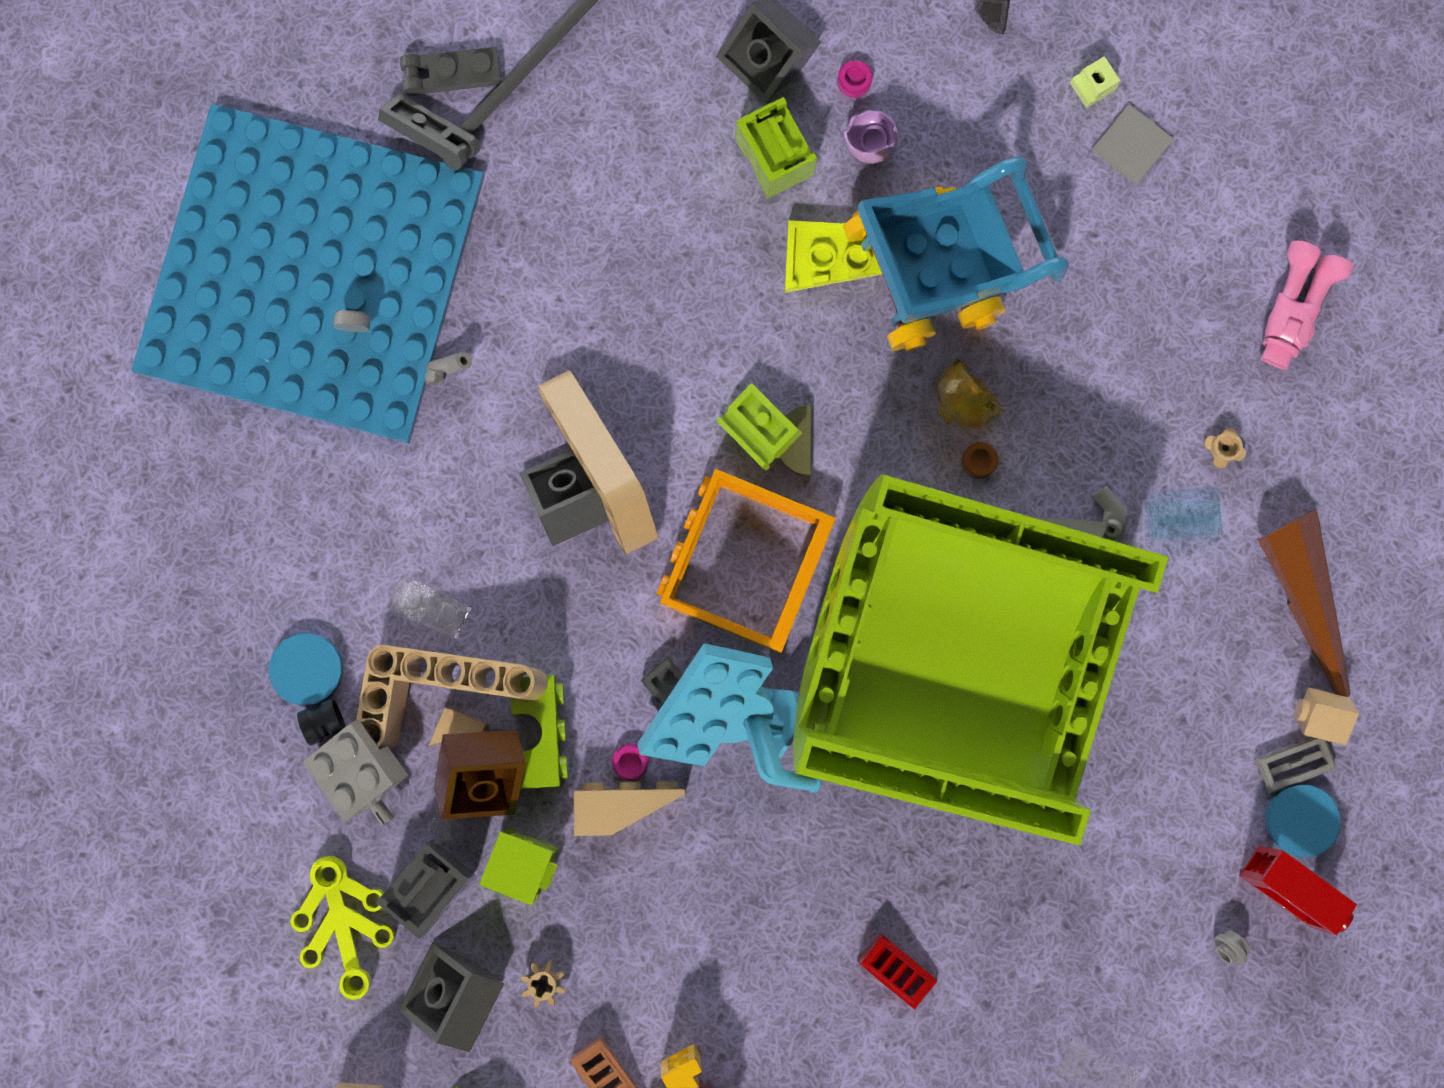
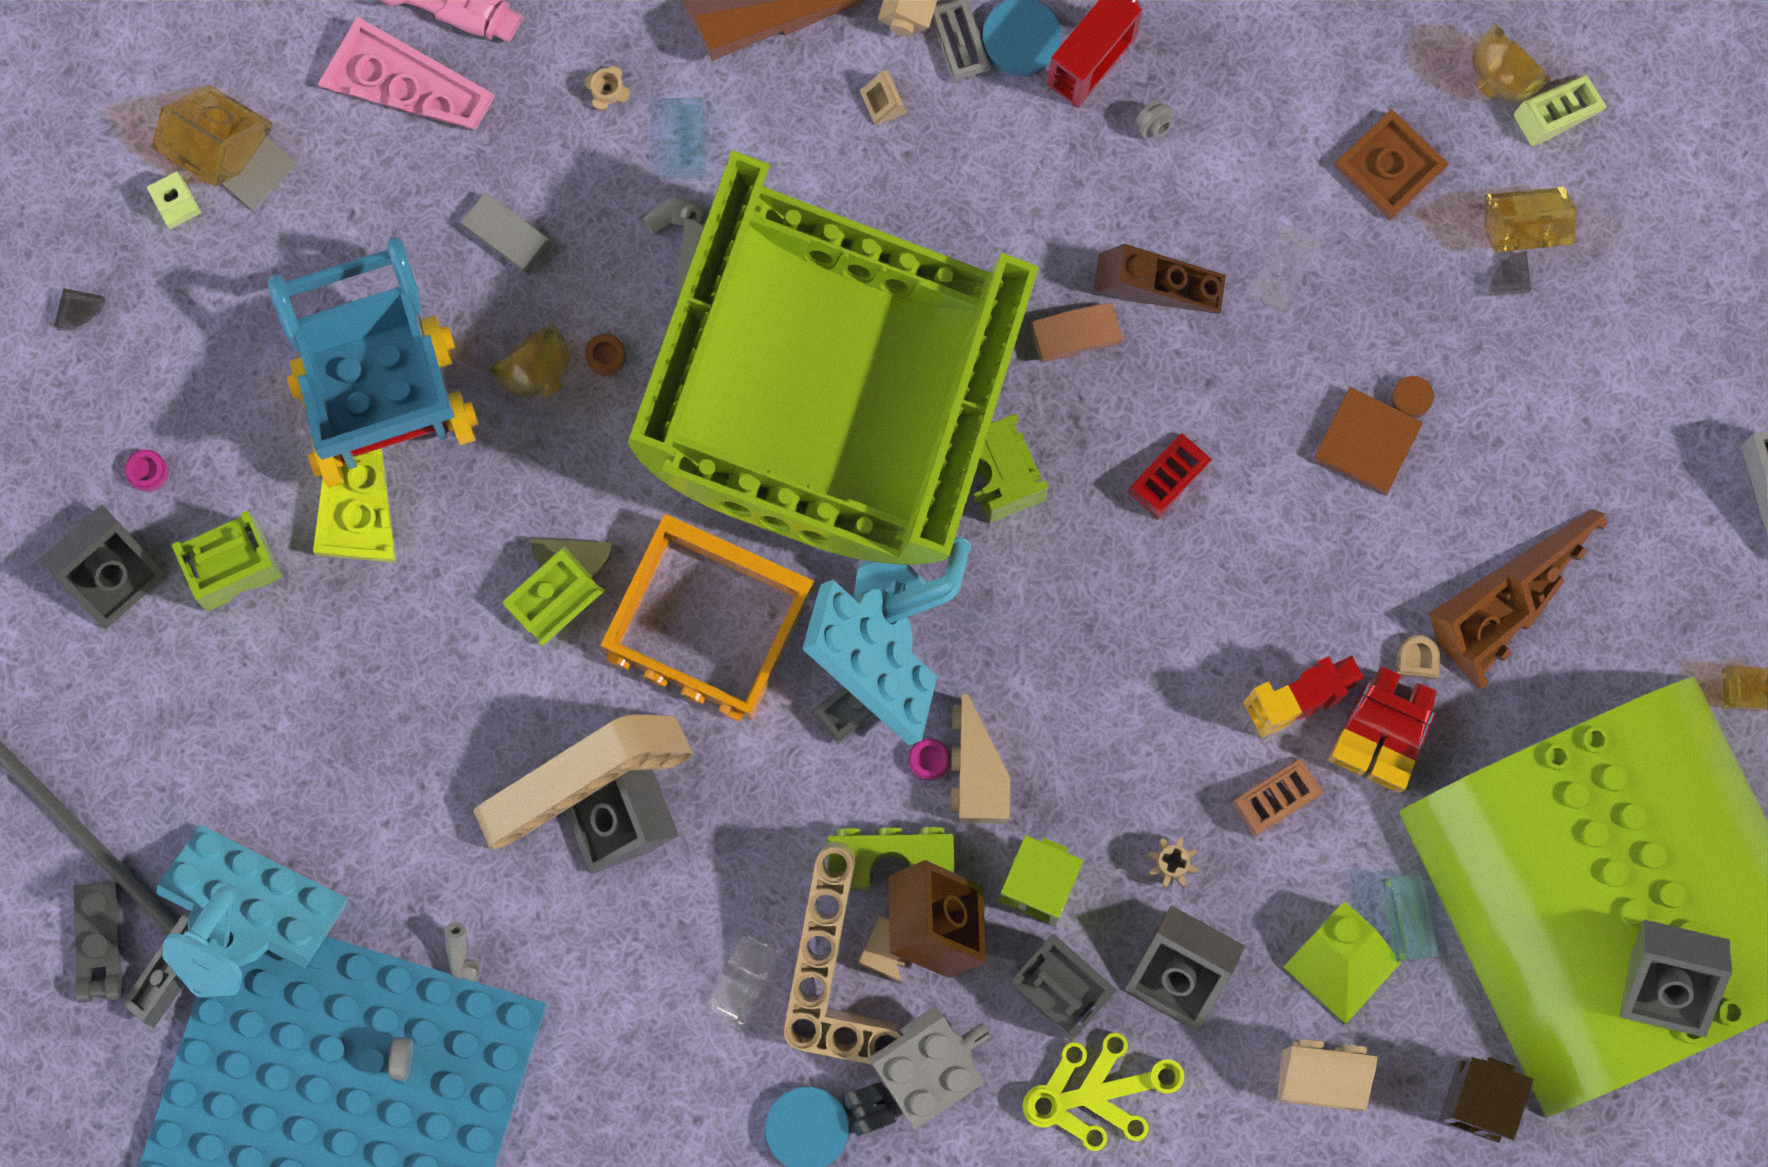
camera: 80 degrees left, 5 degrees down
(484, 182) = (240, 900): none -> medium azure plate
(871, 136) = (220, 453): lavender hair -> none
(891, 824) = (1008, 471): none -> lime piece
(1025, 880) = (1076, 331): none -> nougat slope
(1079, 955) = (1158, 280): none -> reddish brown slope
(1085, 366) = (505, 232): none -> light grey tile
(1156, 106) = (209, 134): none -> clear yellow slope
(1221, 264) = (395, 75): none -> bright pink wing
(1233, 695) = (883, 98): none -> tan slope

